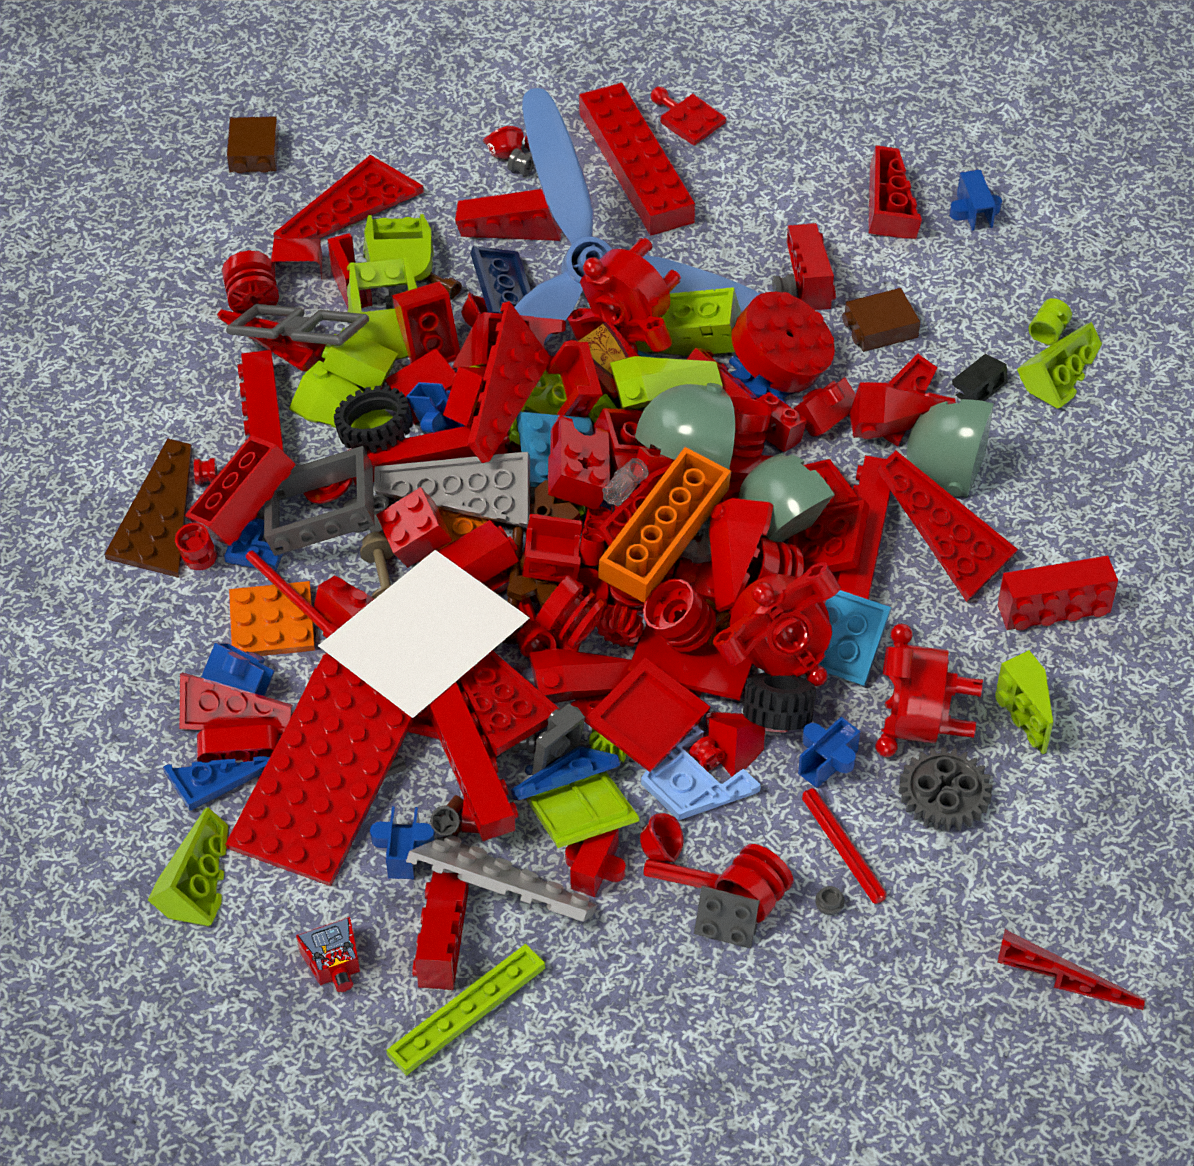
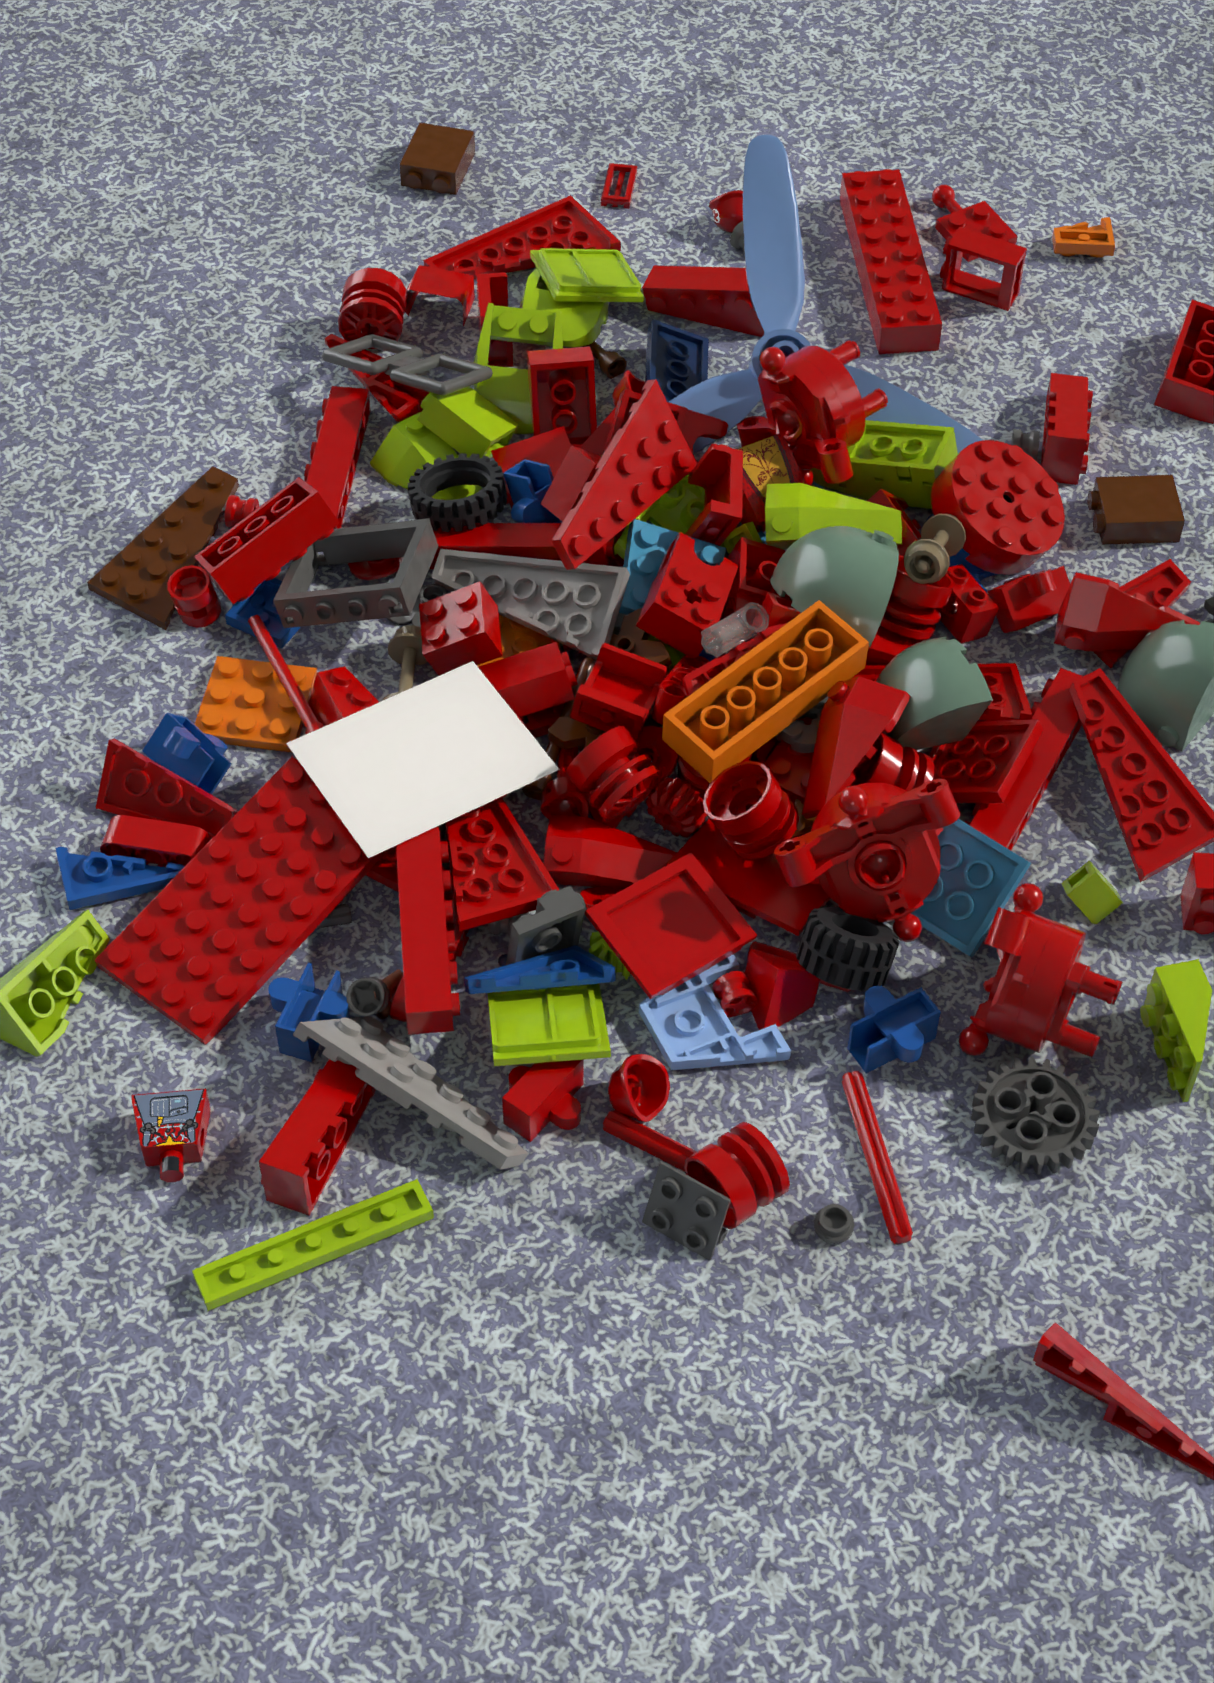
camera: 15 degrees right, 0 degrees up
(405, 149) = (617, 199): none -> red tile
(409, 220) = (587, 275): none -> lime piece
(707, 165) = (975, 287): none -> red window
(750, 395) = (928, 558): none -> dark tan piece
(777, 109) = (1085, 240): none -> orange wing
(936, 618) = (1092, 893): none -> lime panel

